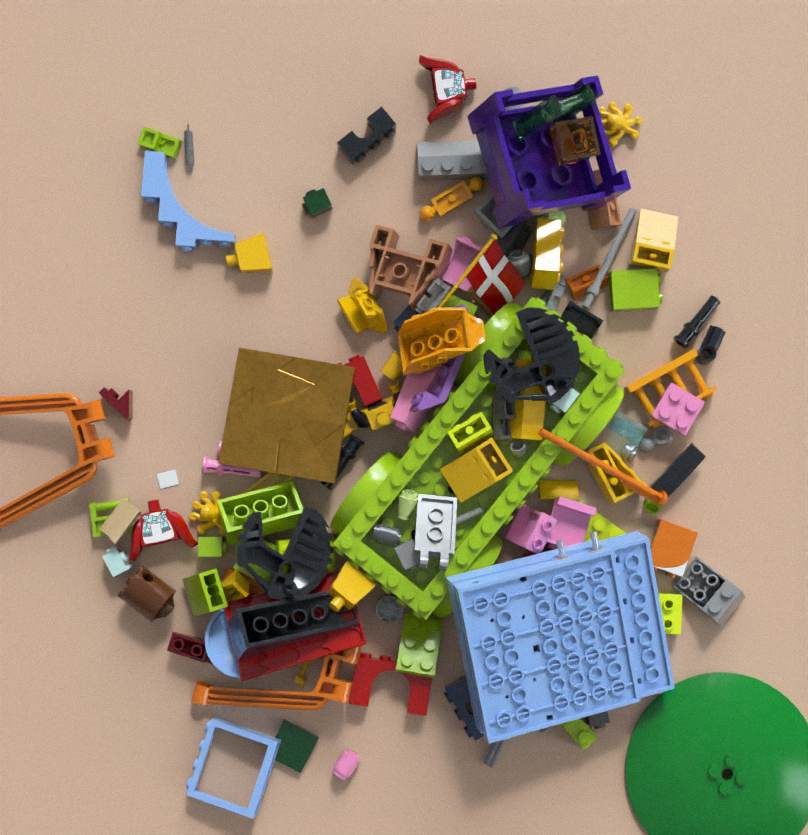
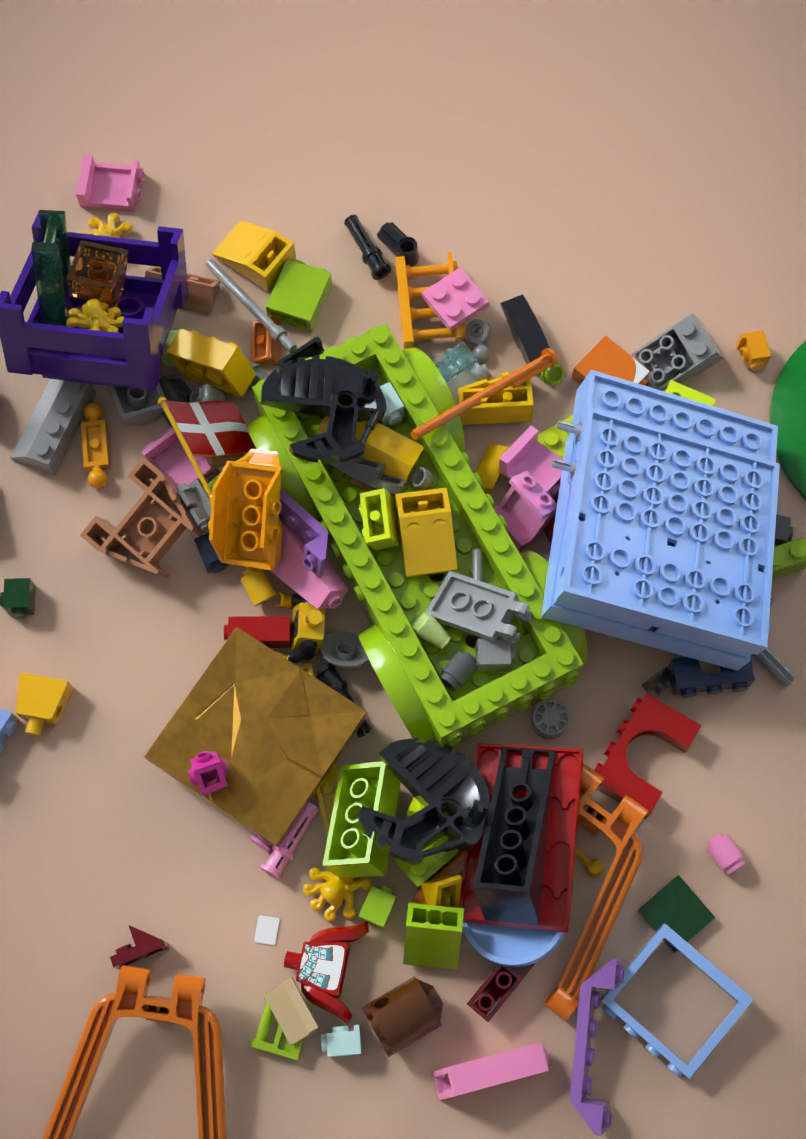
camera: 60 degrees left, 15 degrees down
(138, 664) = (490, 1071): none -> bright pink slope
(142, 737) = (593, 1111): none -> medium lavender slope
(243, 397) = (208, 772): none -> dark pink brick
(349, 587) = (504, 742): yellow torso -> none
(362, 309) = (190, 589): yellow piece -> none
(382, 444) = (343, 650): none -> light grey dish
(419, 646) = (611, 699): lime plate -> none
(447, 674) = (659, 681): none -> black slope
(535, 158) = (95, 317): none -> yellow animal
(664, 104) = (109, 185): none -> bright pink panel
(736, 647) = (754, 350): none -> light orange brick

